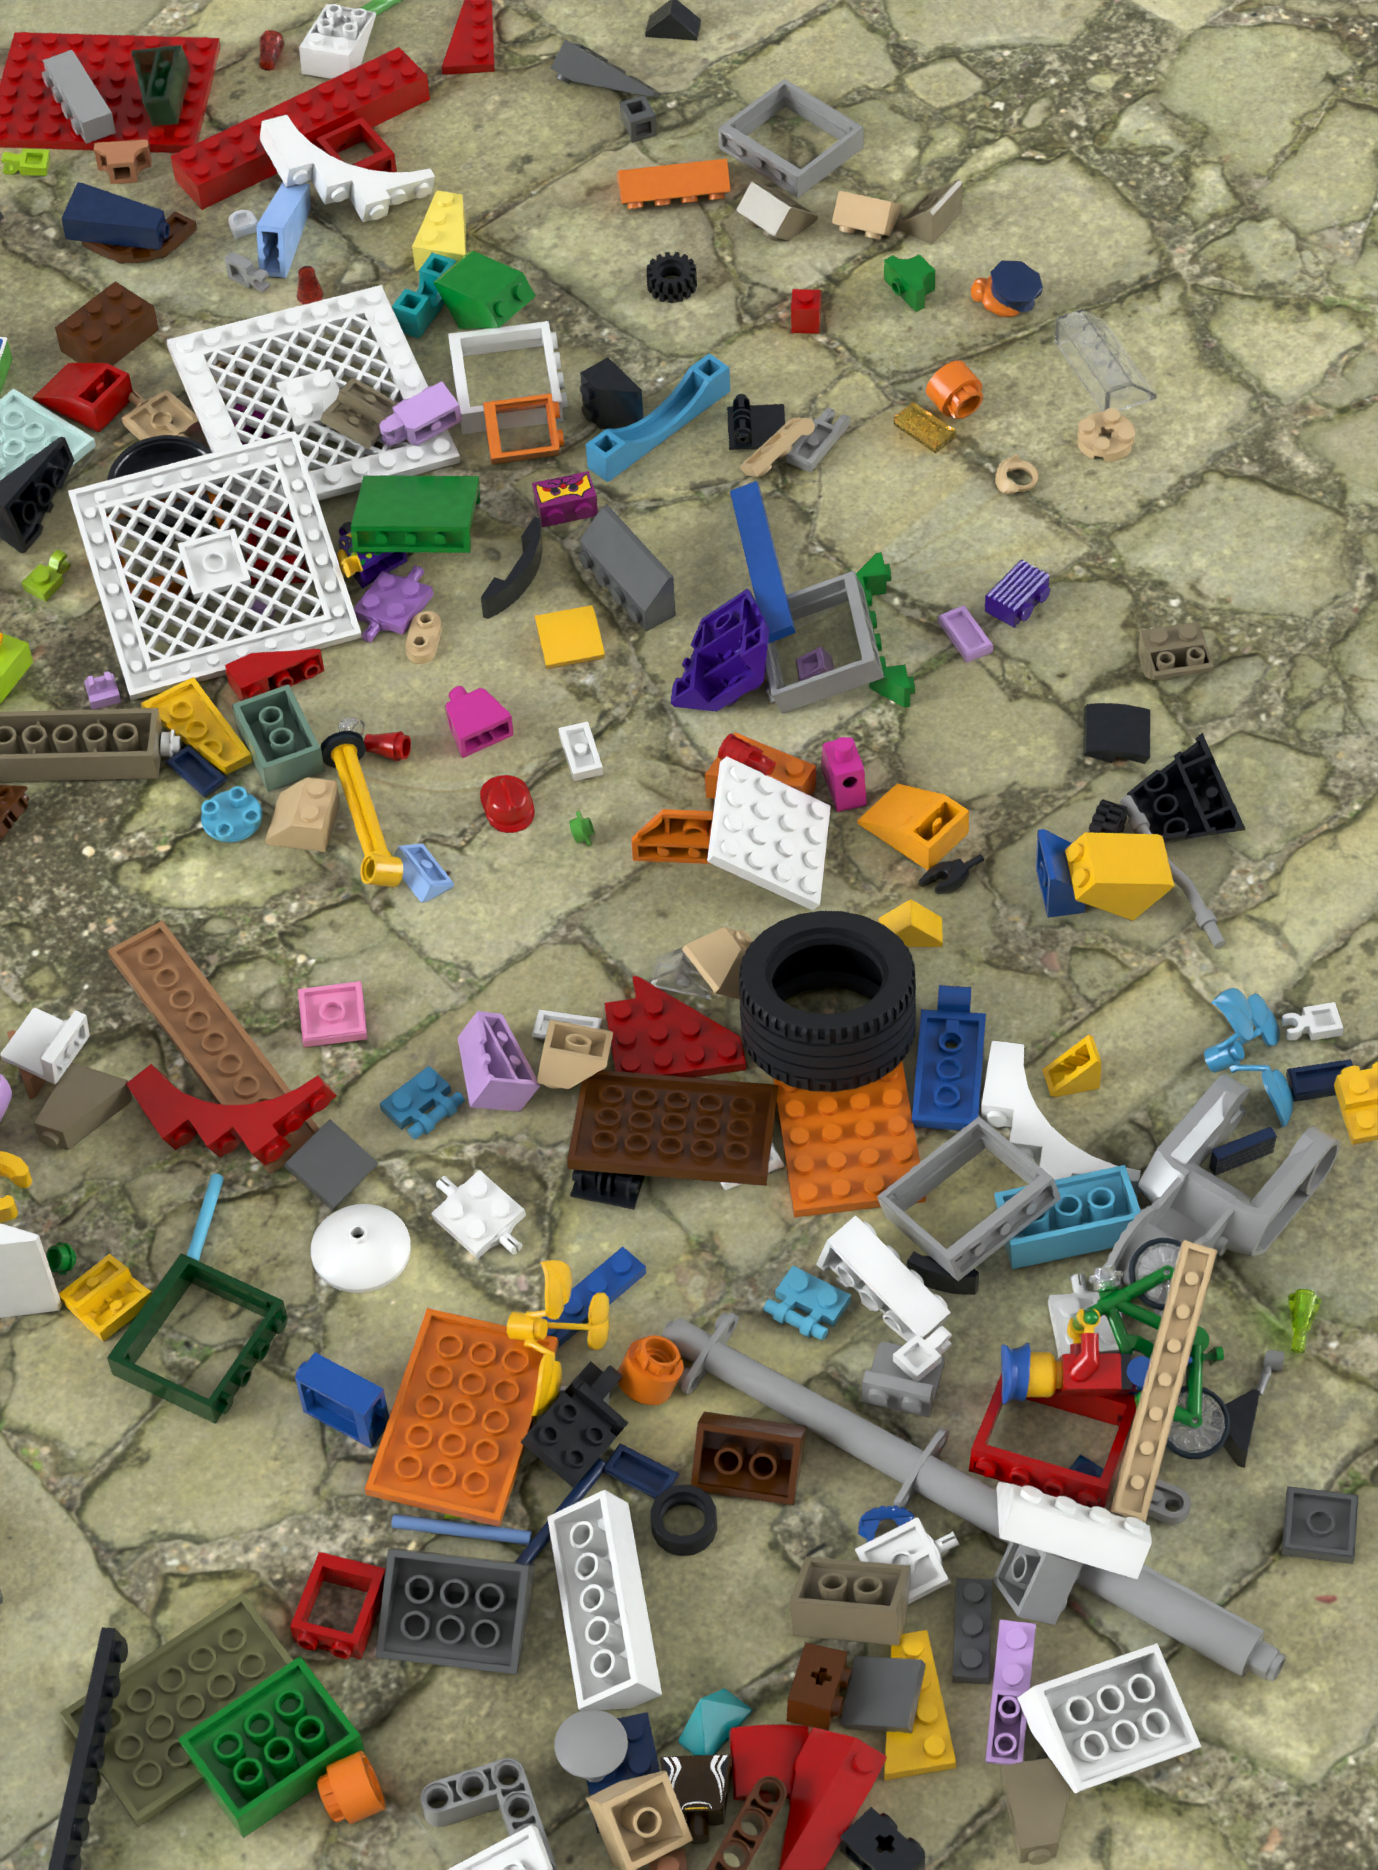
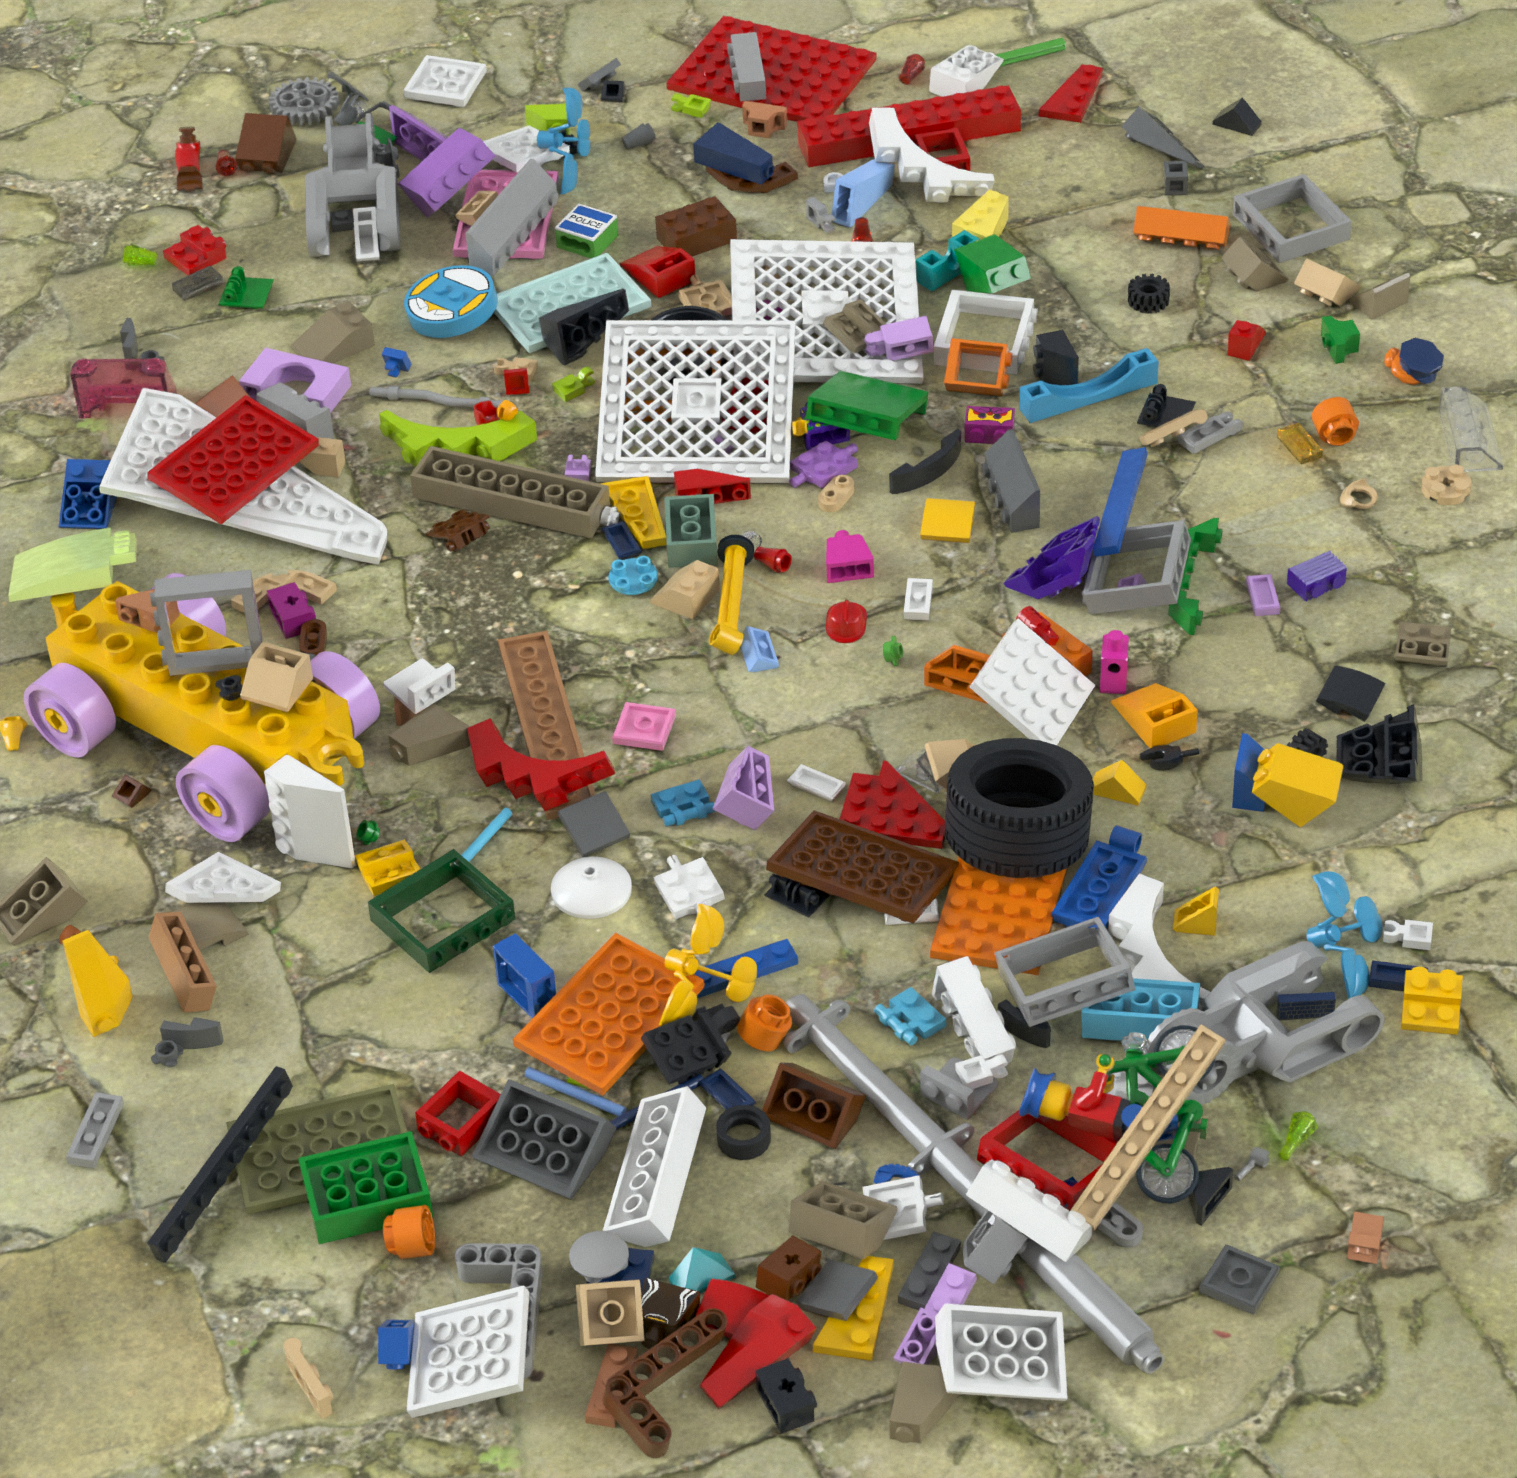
camera: 20 degrees right, 10 degrees down
(162, 82) = (814, 69): wedge -> none
(572, 1054) = (805, 794): tan slope -> none
(1204, 917) = (1358, 837): light grey bar -> none

